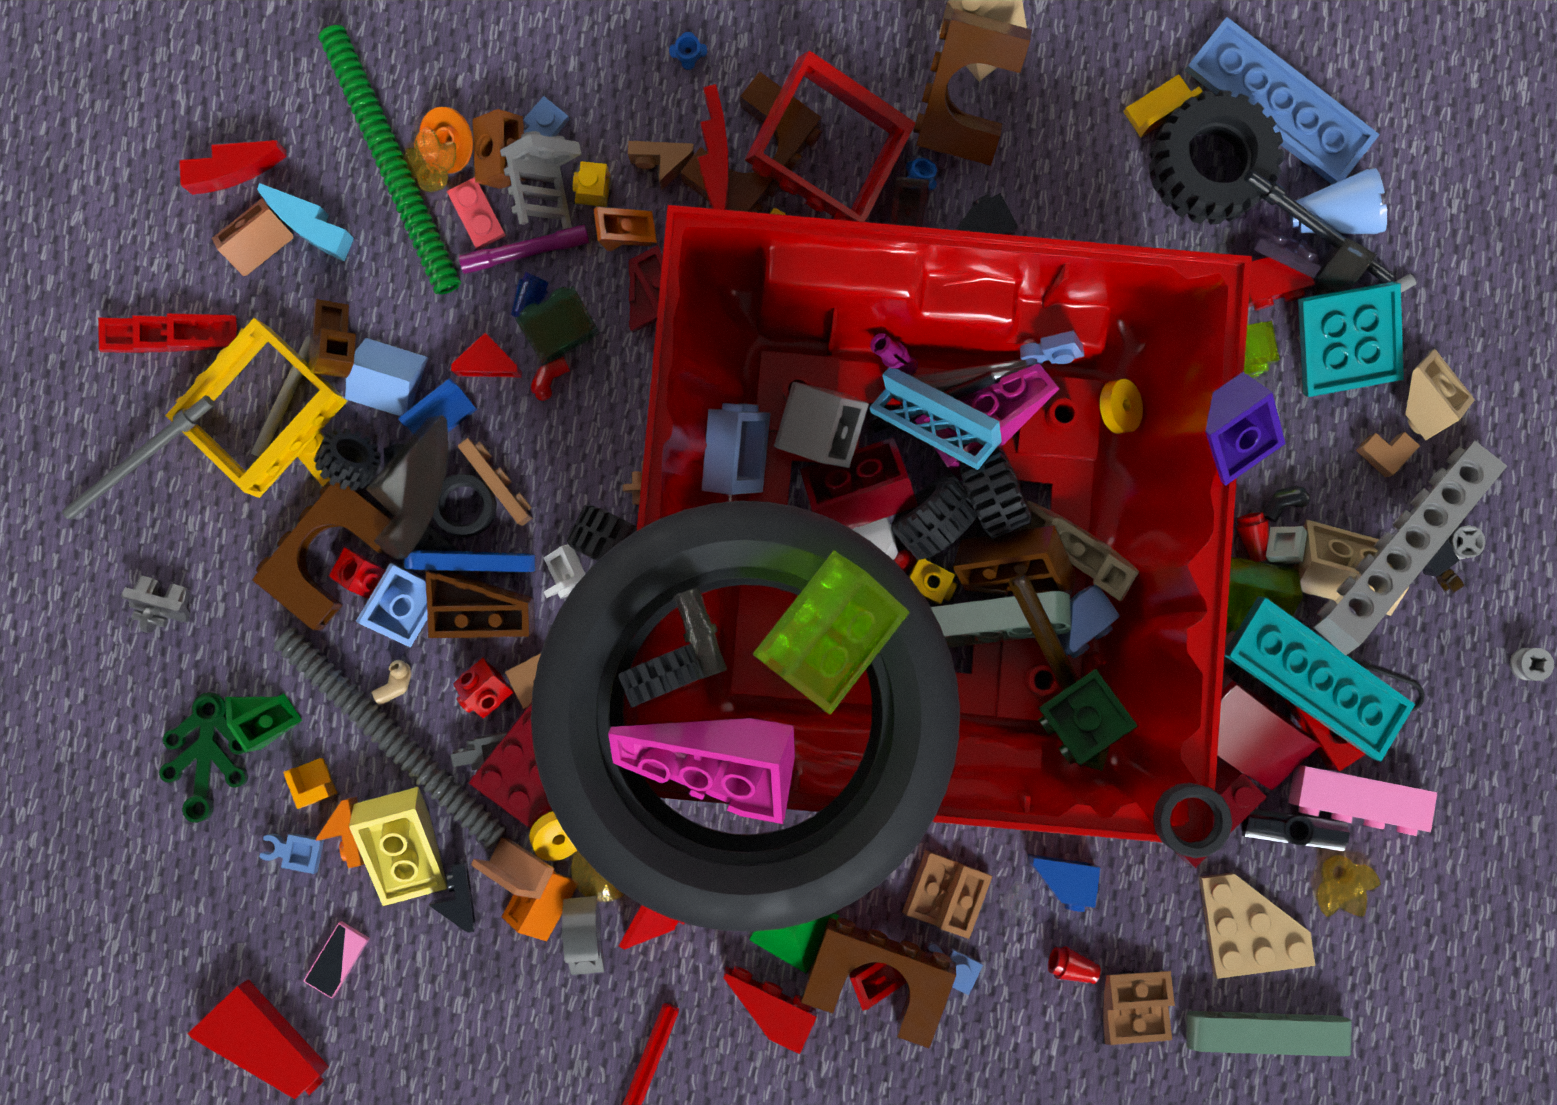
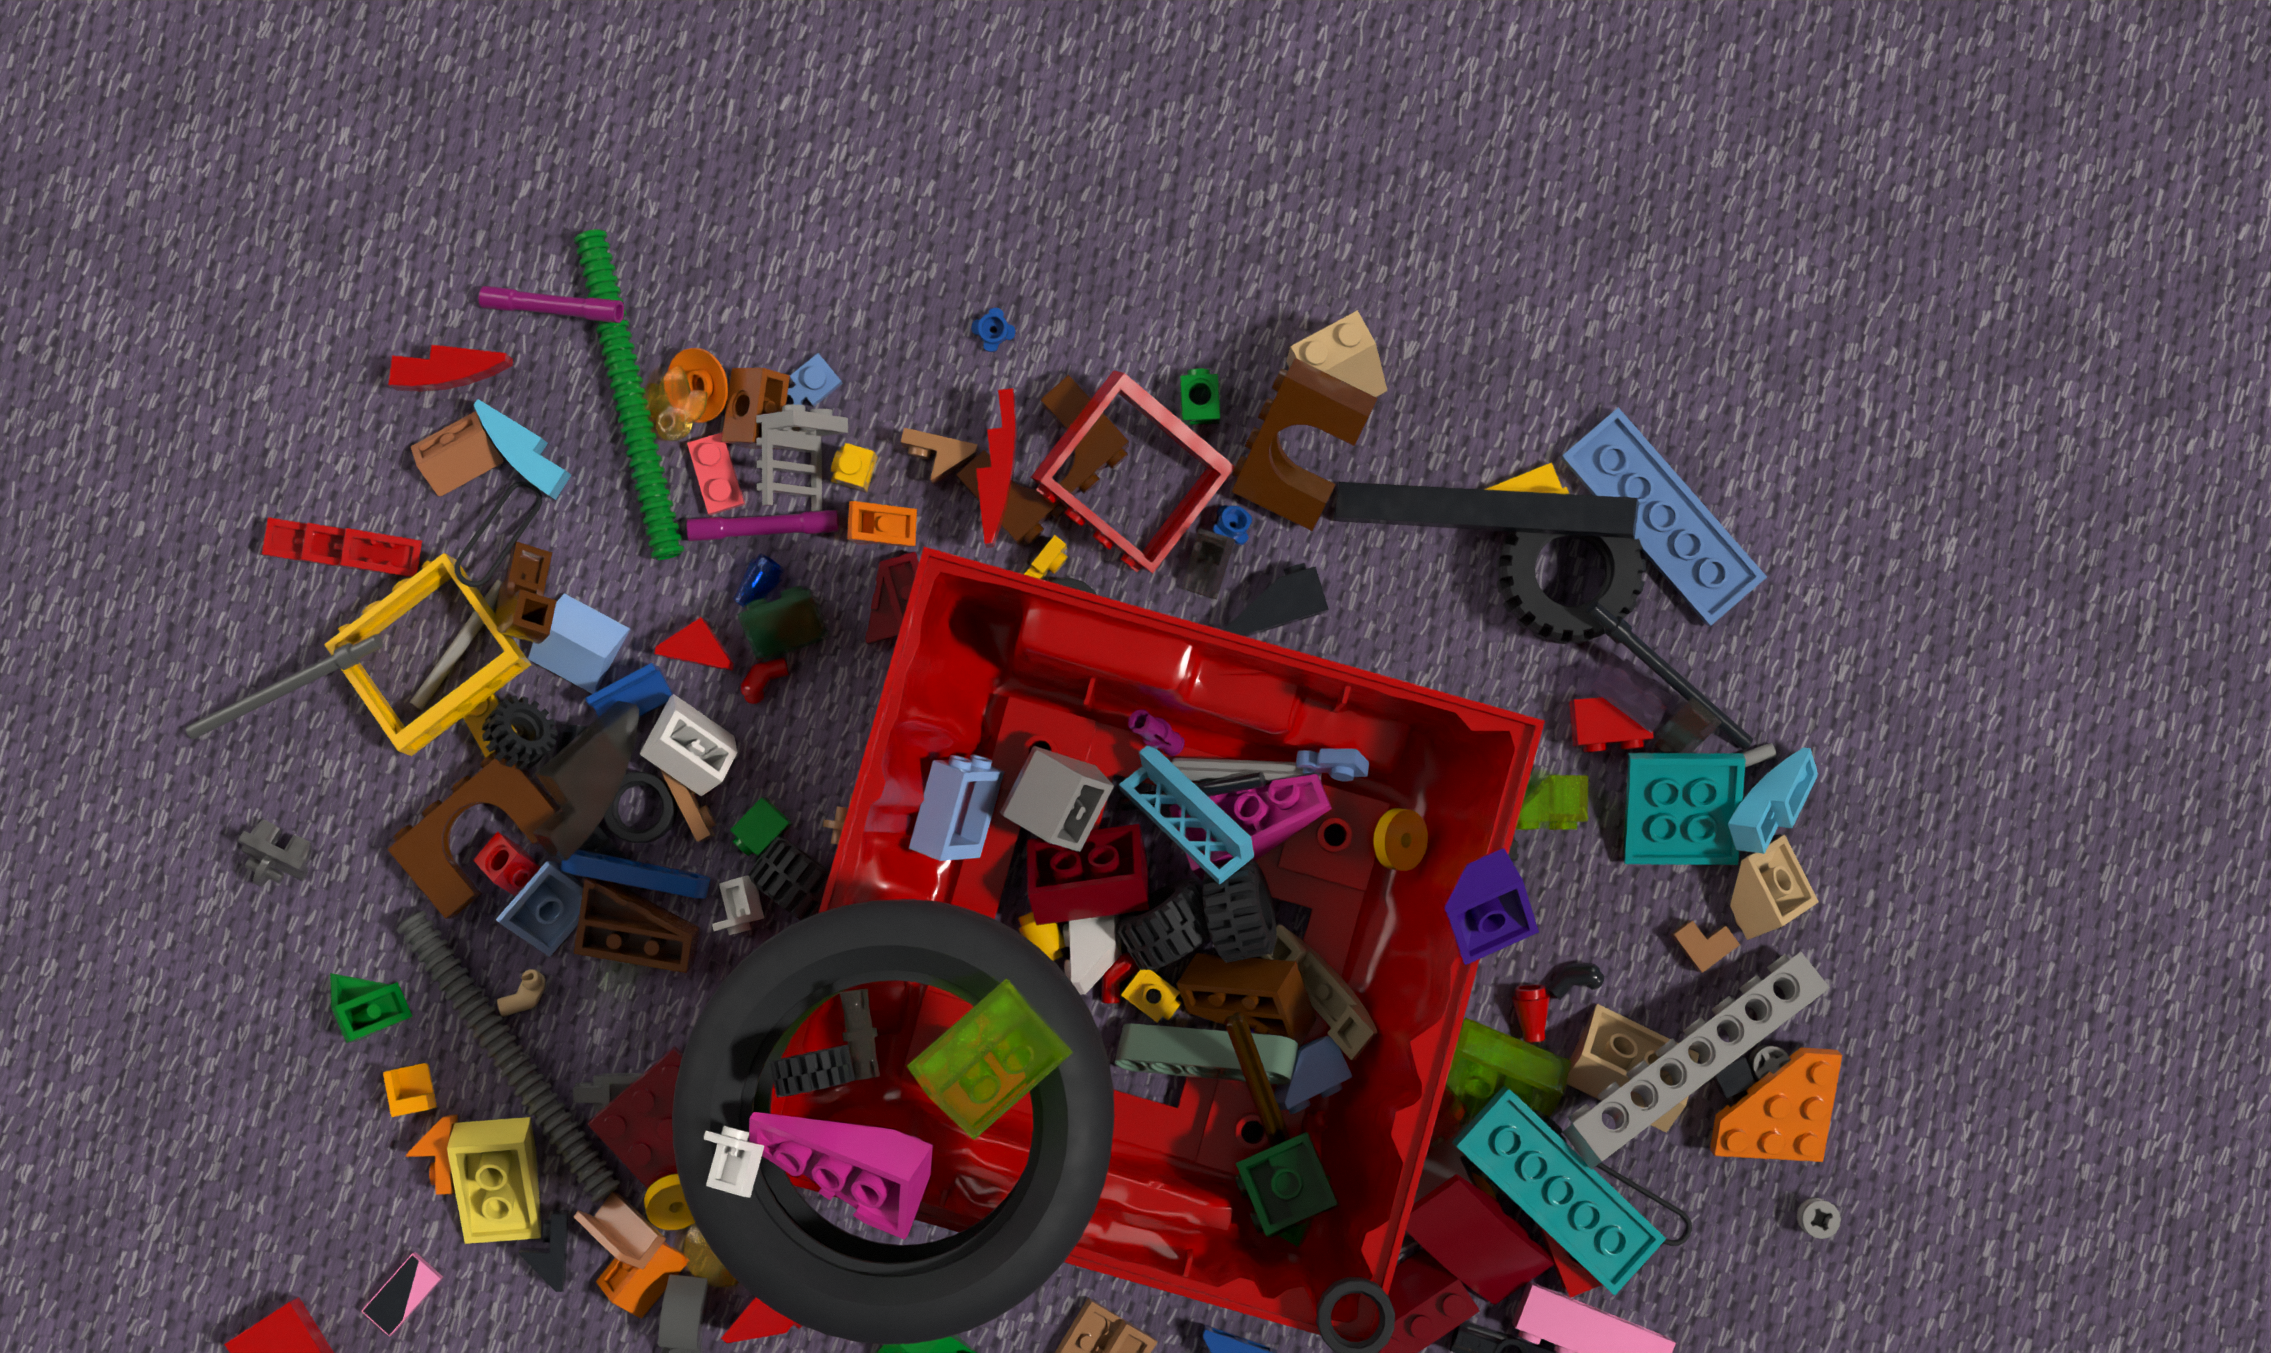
camera: 15 degrees right, 0 degrees up
(205, 752) = (298, 1030): dark green plant -> none
(285, 290) = (484, 525): none -> black piece
(298, 852) = (382, 1165): medium blue plate -> none
(341, 88) = (590, 308): none -> magenta piece
(481, 688) = (622, 1020): red brick -> none
(495, 444) = (690, 747): none -> white slope
(522, 679) = (671, 1018): medium nougat piece -> none
(568, 502) = (759, 827): none -> green brick
(601, 779) = (734, 1161): none -> white bracket
(875, 58) = (1200, 414): none -> green brick
(1141, 114) = (1487, 509): none -> black tile
(1286, 544) = (1563, 1029): light aqua tile -> none
(1348, 205) = (1708, 653): light blue cone -> none
(1425, 320) = (1773, 802): none -> medium azure slope
(1486, 579) = (1783, 1112): none -> orange plate

